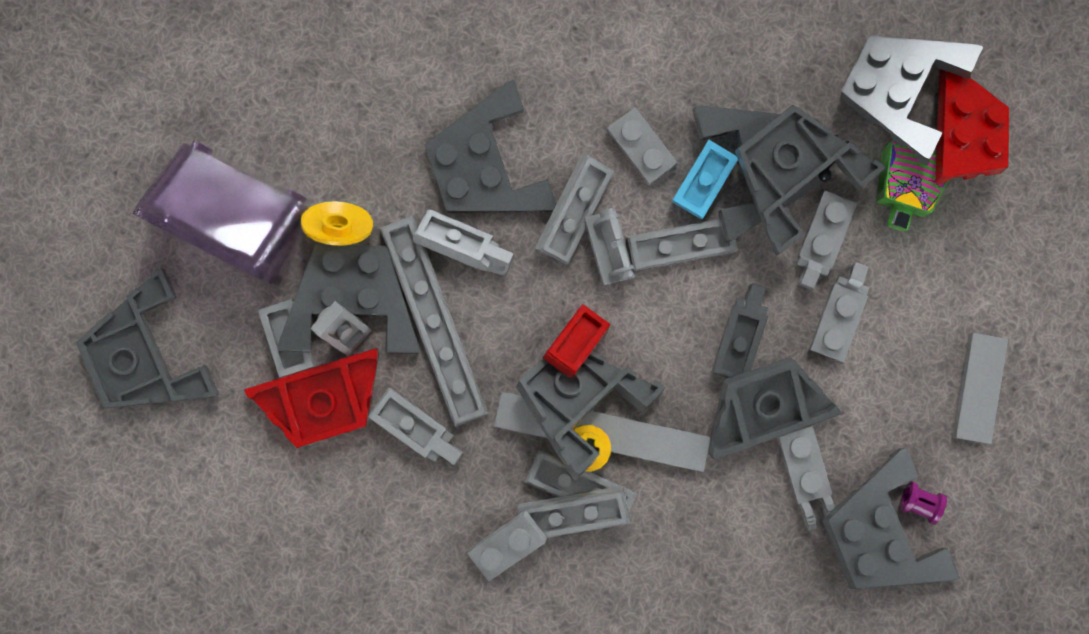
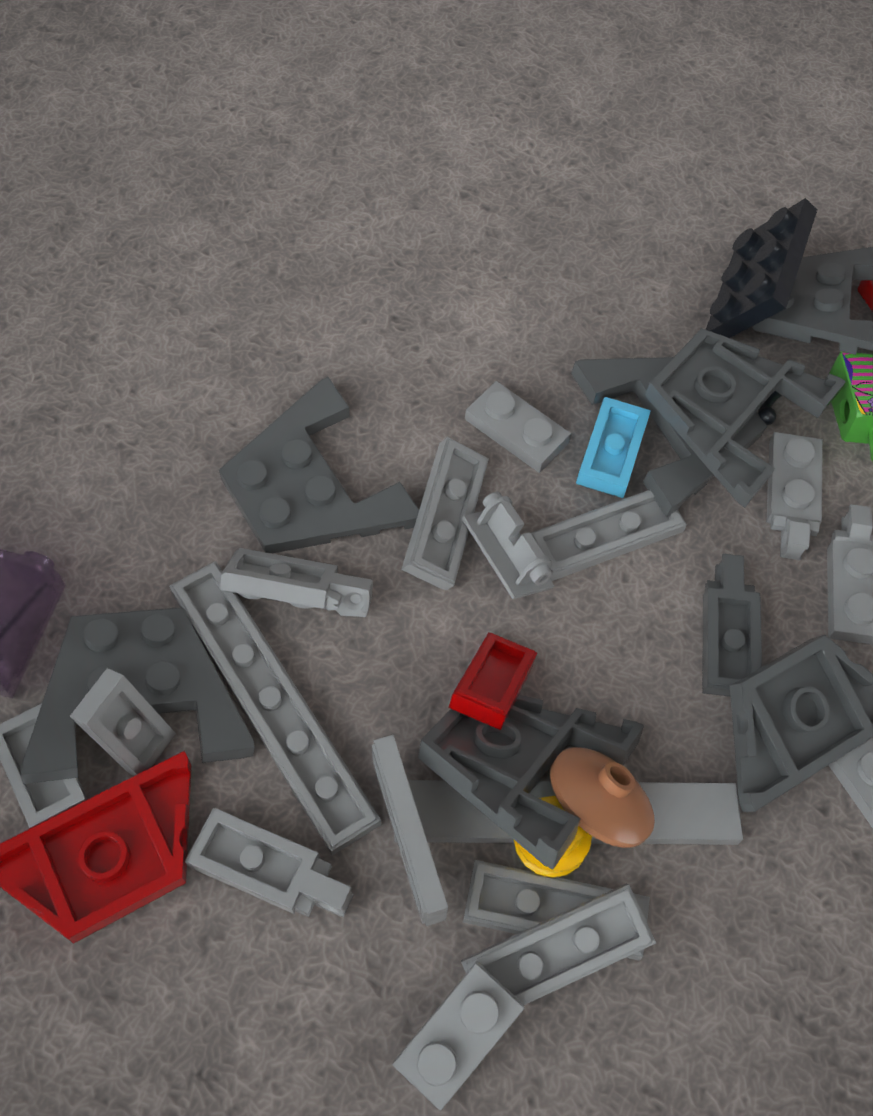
camera: 15 degrees left, 25 degrees down
(336, 223) = (102, 586): yellow dish -> none
(501, 429) = (409, 831): none -> light grey tile
(621, 434) = (603, 796): none -> nougat dish
(859, 55) = (762, 270): none -> black plate

